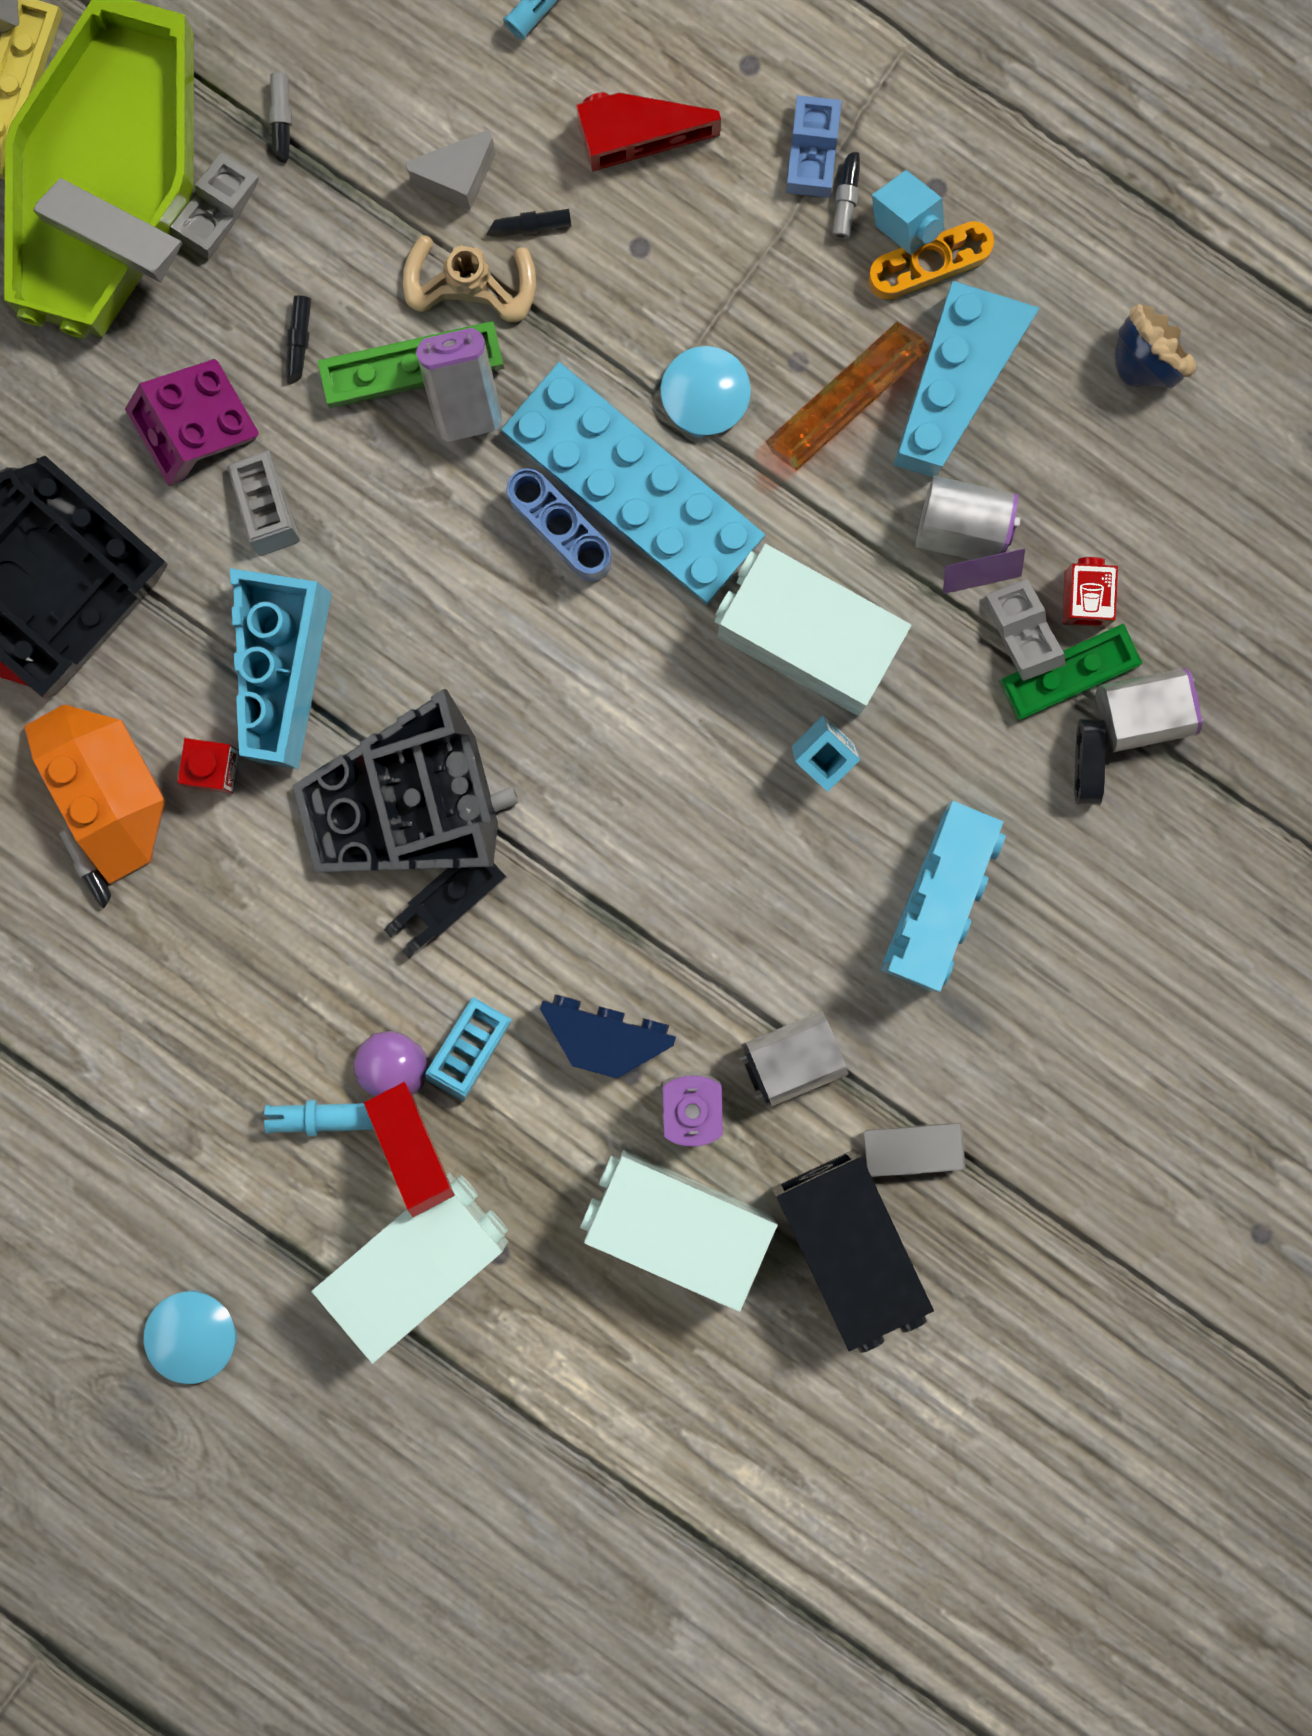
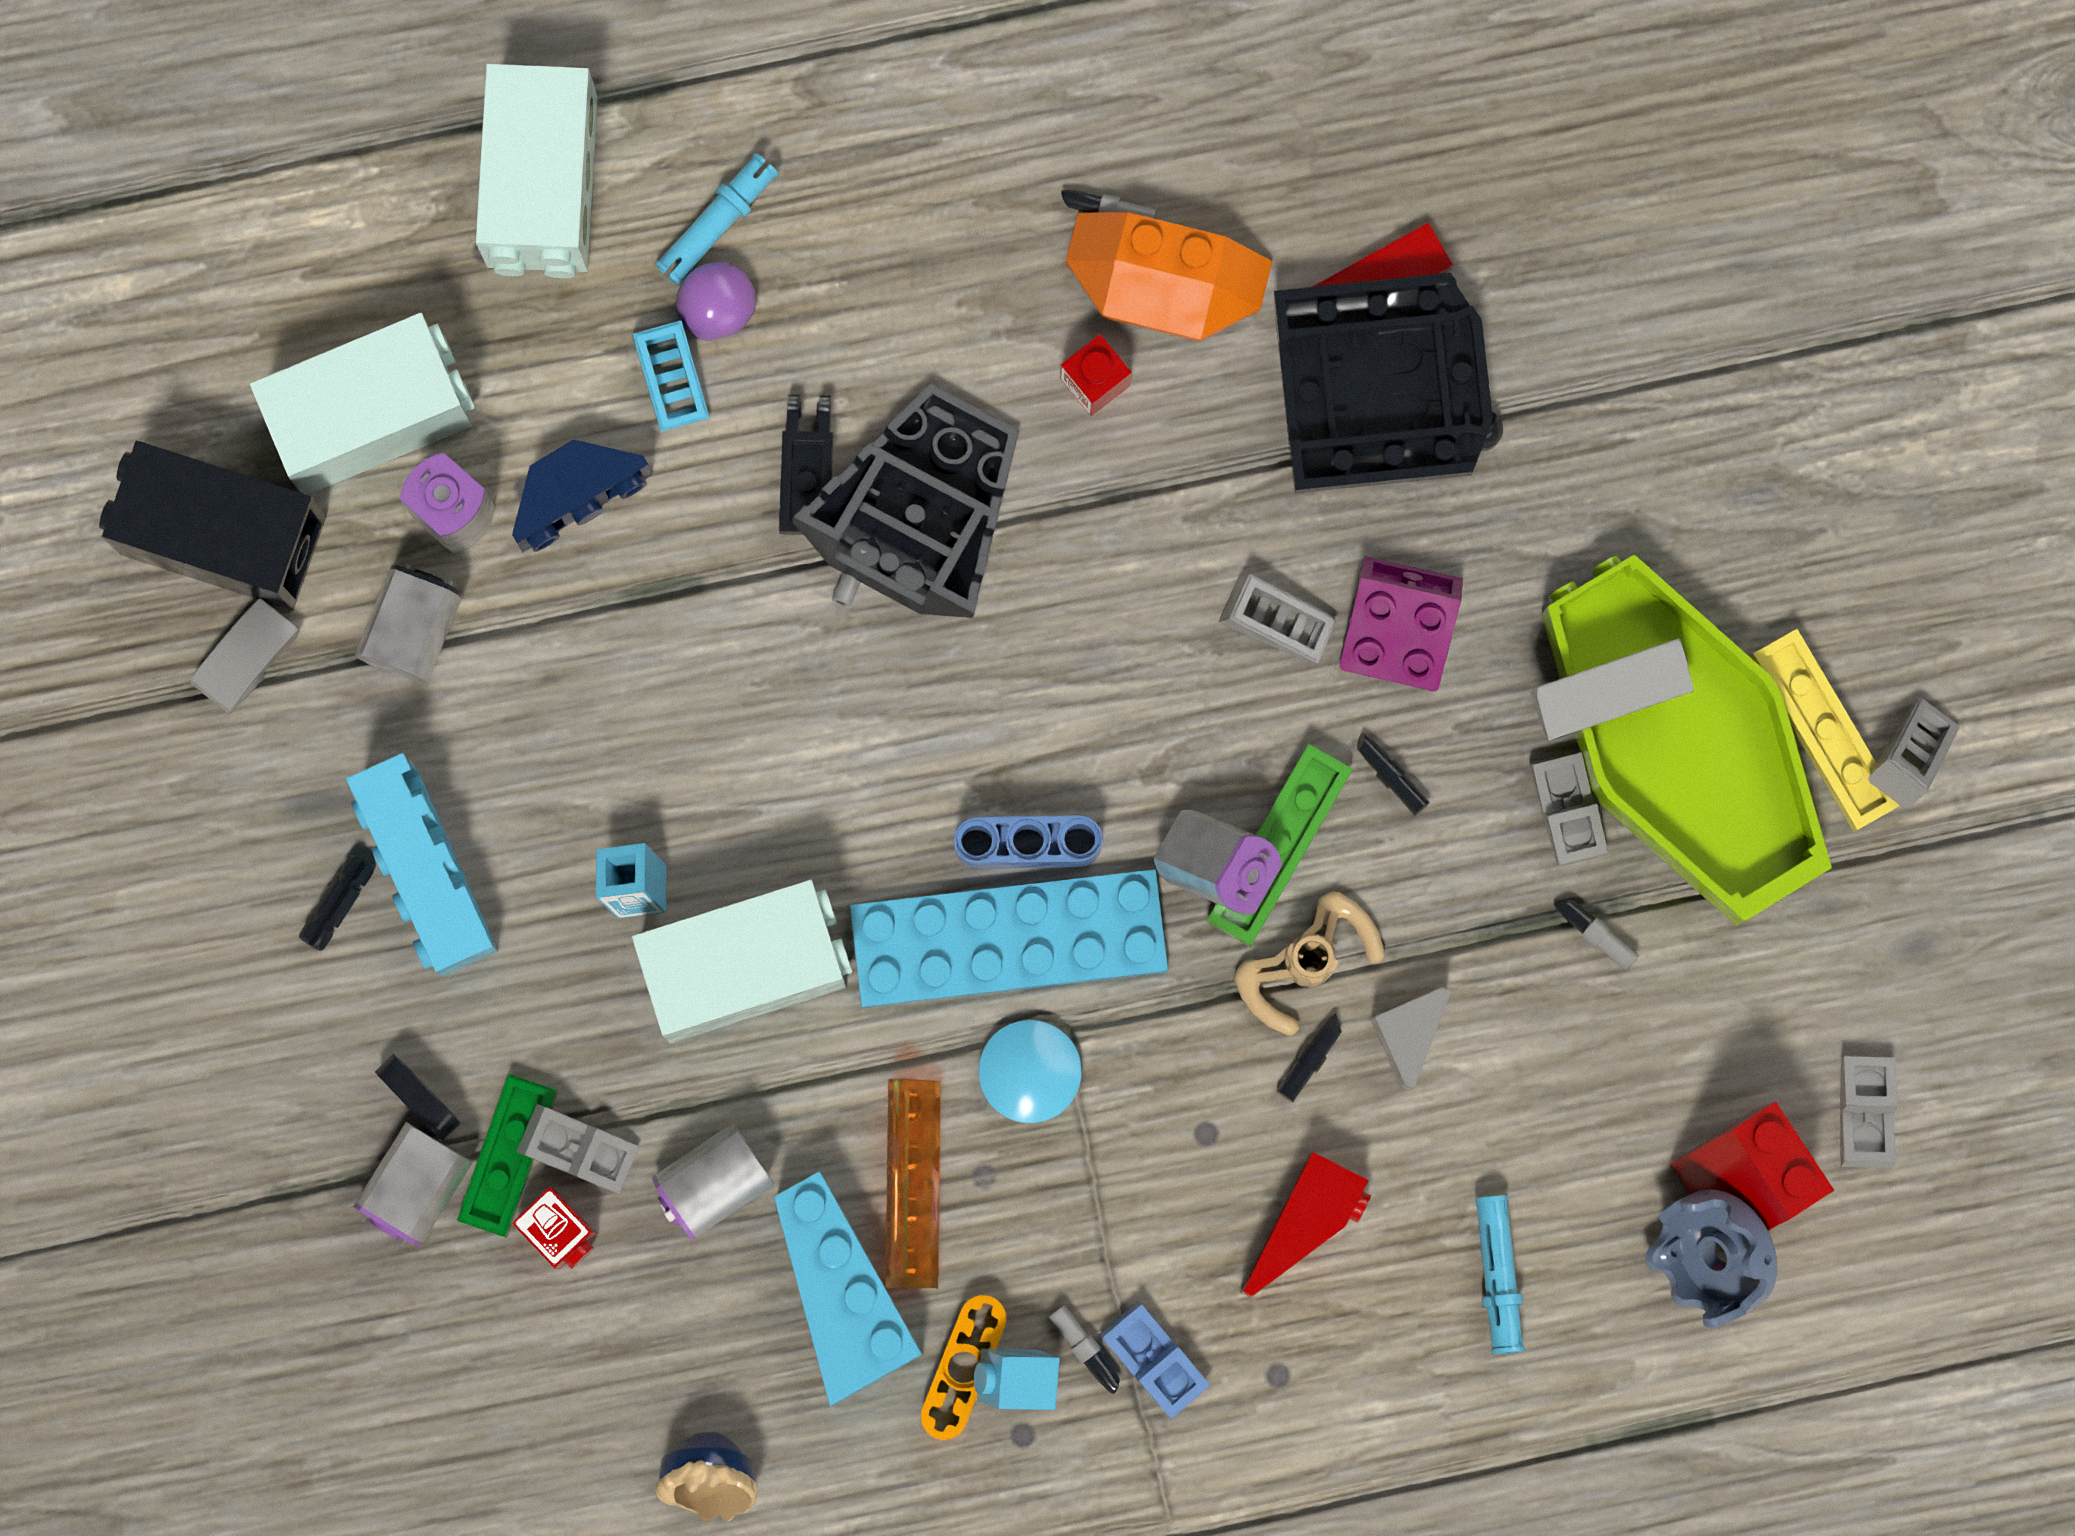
camera: 130 degrees right, 5 degrees down
(277, 662) = (1127, 504): medium azure wedge -> none
(409, 1149) = (628, 246): red tile -> none
(983, 571) = (658, 1157): medium lavender sticker -> none
(1016, 935) = (336, 903): none -> black axle

